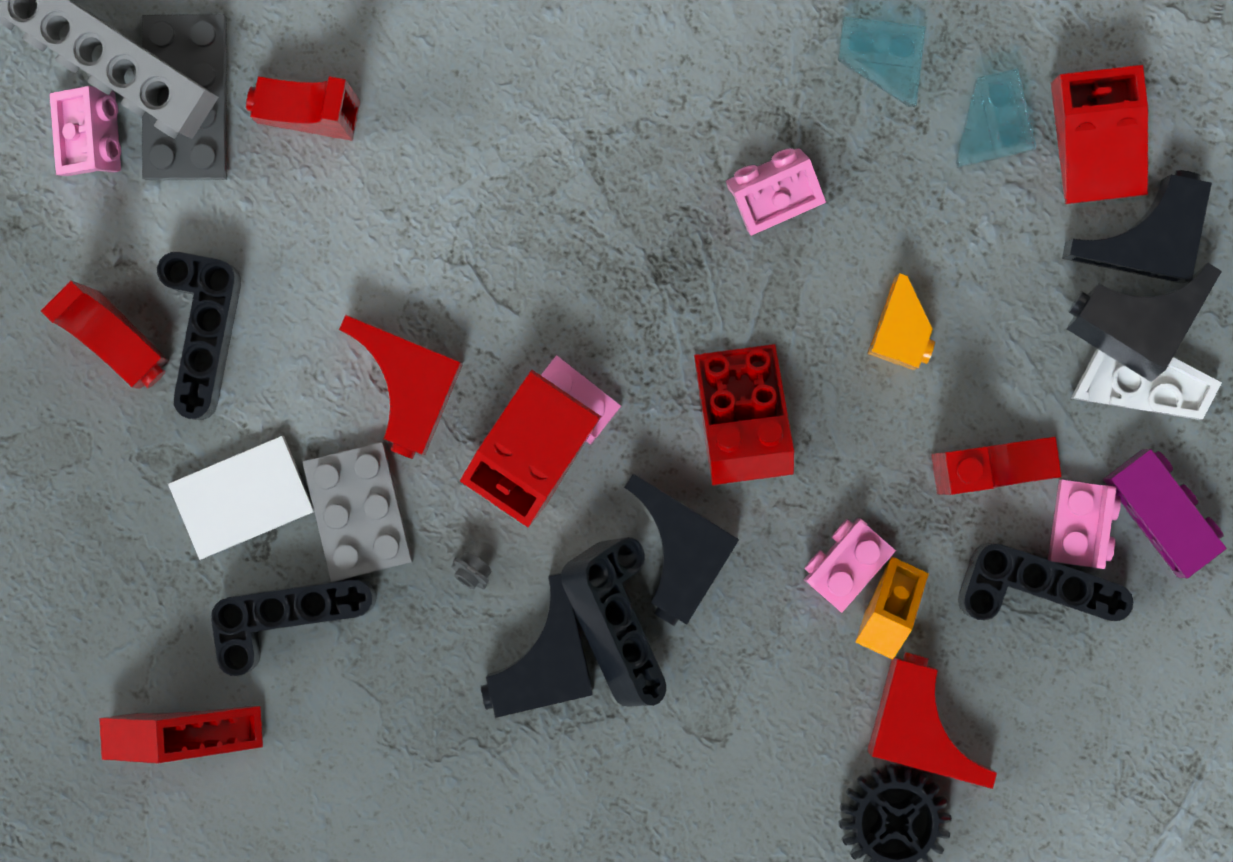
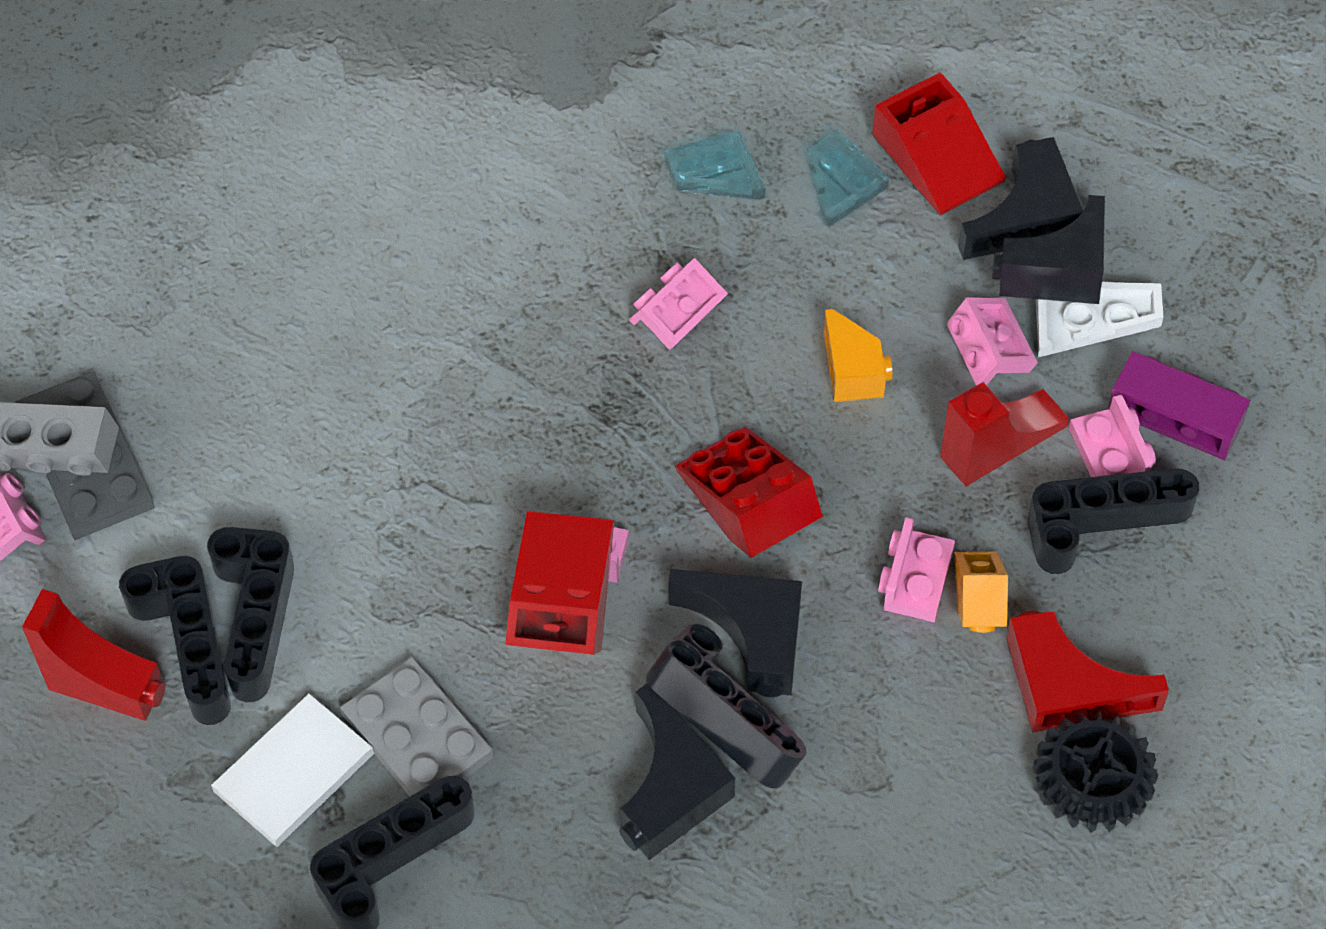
camera: 25 degrees left, 30 degrees down
(262, 336) = (251, 614): none -> black beam
(308, 107) = (211, 403): red arch -> none
(416, 383) = (415, 584): red arch -> none
(471, 571) = (557, 731): dark grey plate -> none
(1036, 364) = (990, 339): none -> bright pink bracket

